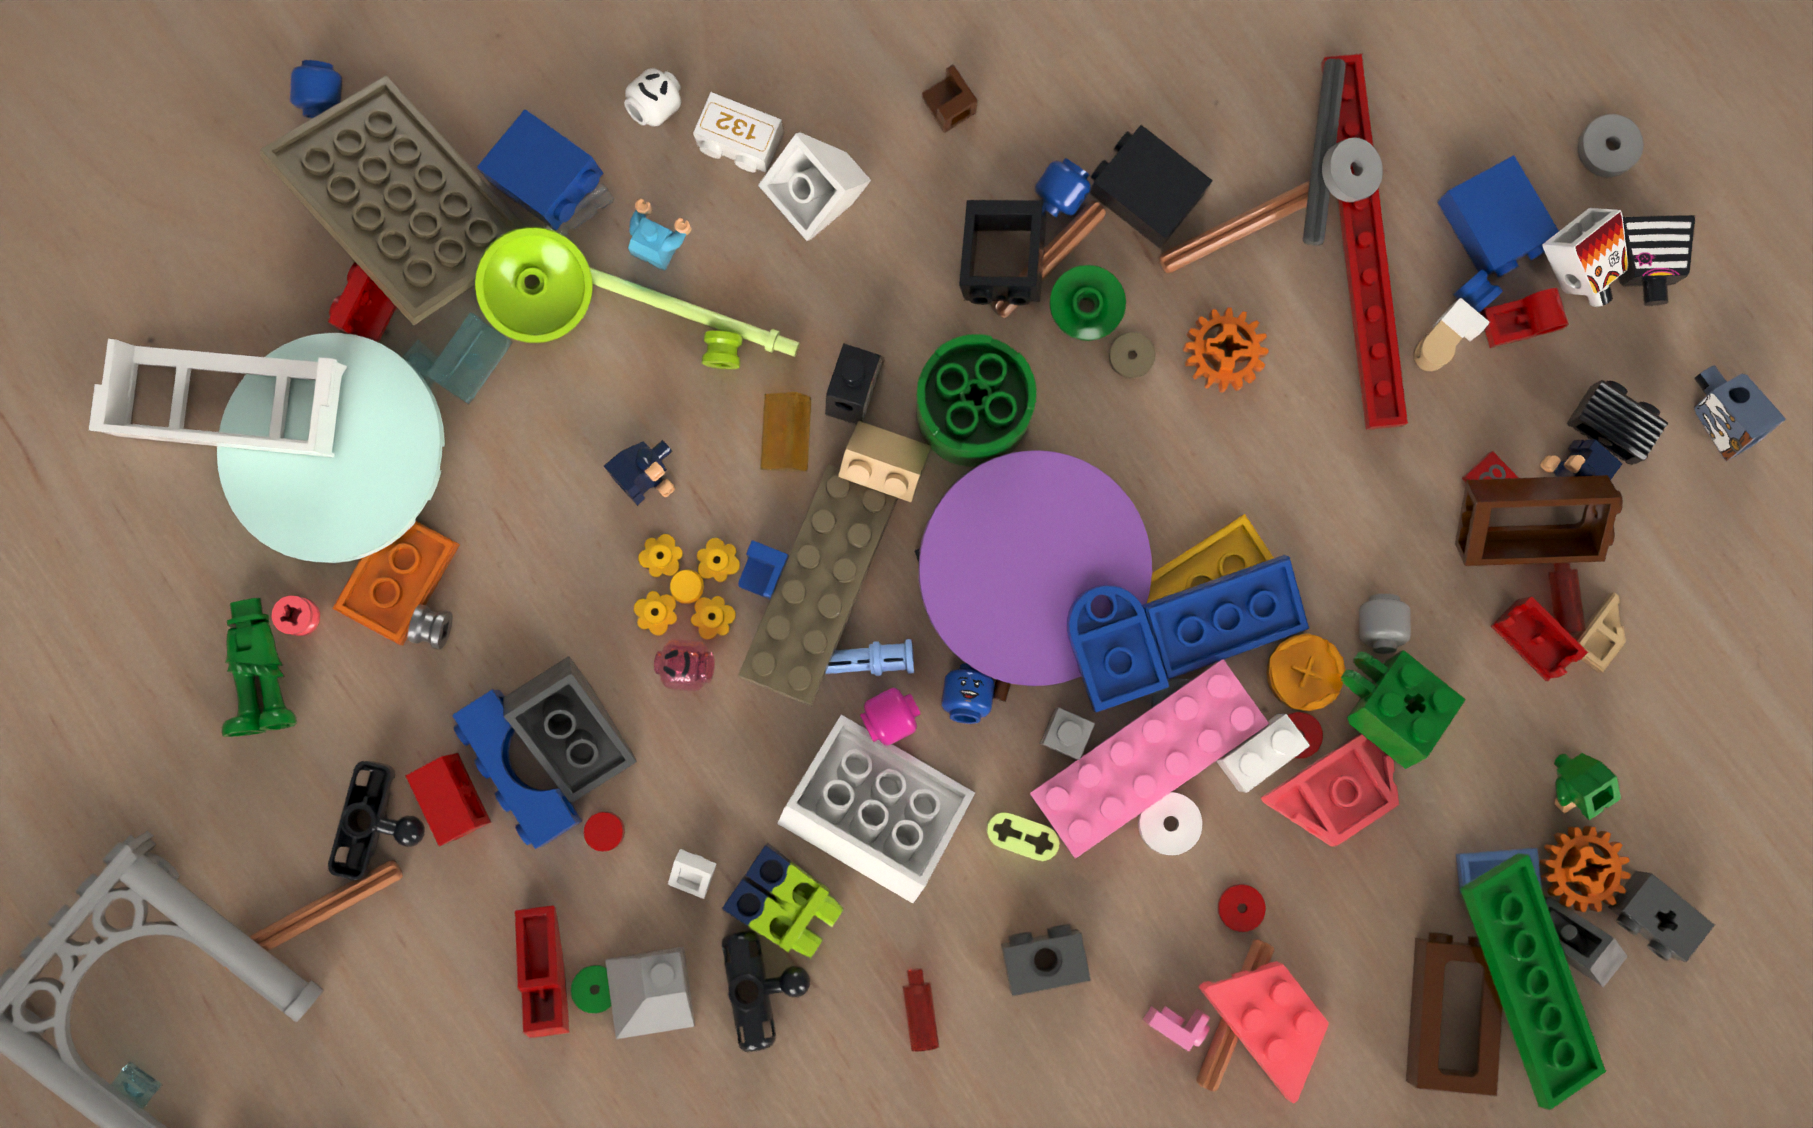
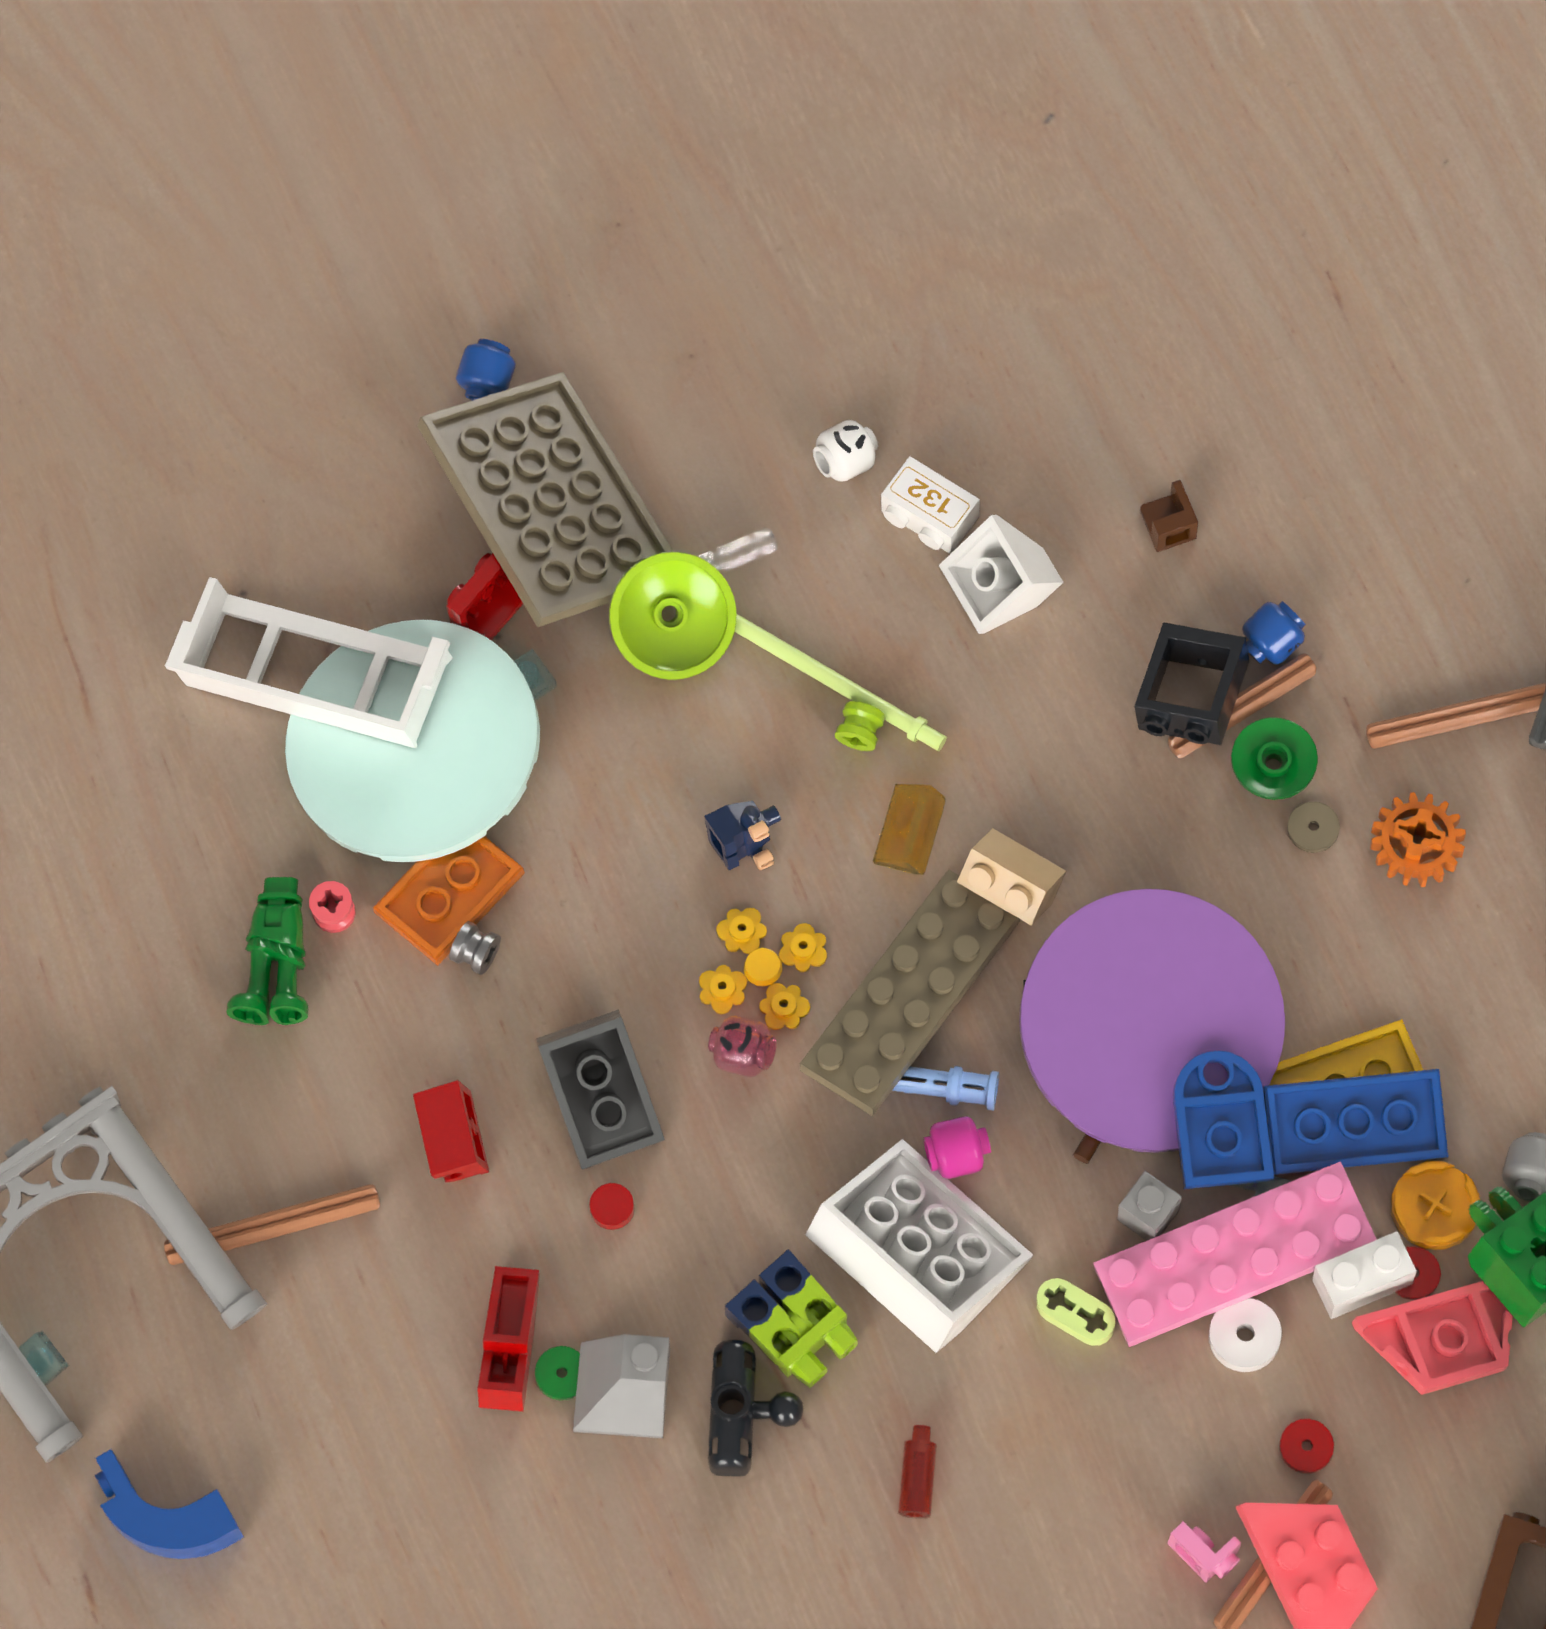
camera: 20 degrees right, 15 degrees down
(362, 843) = (347, 1156): black piece -> none
(469, 358) = (582, 679): clear light blue panel -> none
(540, 170) = (707, 500): blue brick -> none
(540, 813) = (550, 1164): blue arch -> none
(652, 241) = (812, 598): medium azure piece -> none
(692, 873) = (698, 1268): white plate -> none
(762, 569) = (851, 964): blue panel -> none
(852, 383) = (999, 784): black torso -> none
(956, 426) = (1113, 859): green brick -> none
(967, 694) = (1048, 1143): blue head -> none
(1068, 967) = (1048, 1462): dark grey brick -> none
(1149, 185) = (1370, 650): black brick -> none

